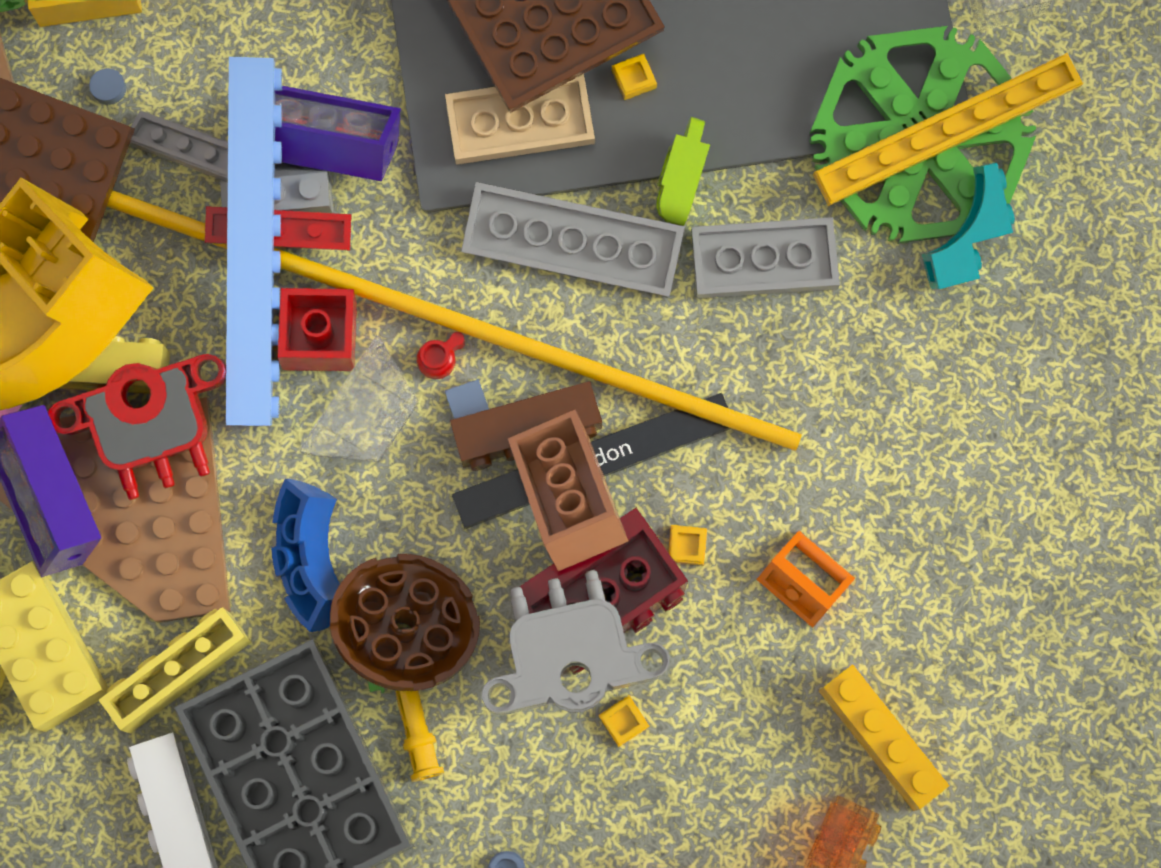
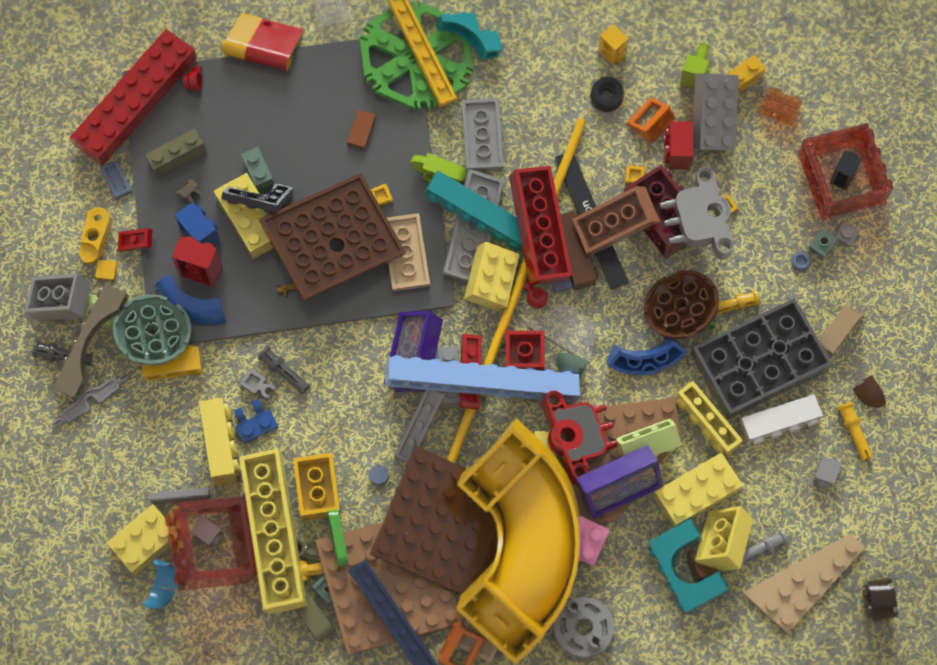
camera: 90 degrees left, 5 degrees down
(127, 551) = (659, 438): none -> yellowish green brick
(297, 418) = (571, 363): none -> sand green brick
(468, 269) = (491, 276): none -> light yellow brick
(560, 349) = (540, 225): none -> red brick
(594, 241) = (474, 209): none -> teal brick
(743, 625) = (679, 145): none -> red brick
(766, 40) = (361, 129): none -> dark orange tile
(811, 696) = (715, 111): none -> light grey brick
(862, 472) = (607, 84): none -> black tyre
(909, 663) = (695, 65): none -> lime brick
(958, 500) = (613, 44): none -> yellow brick

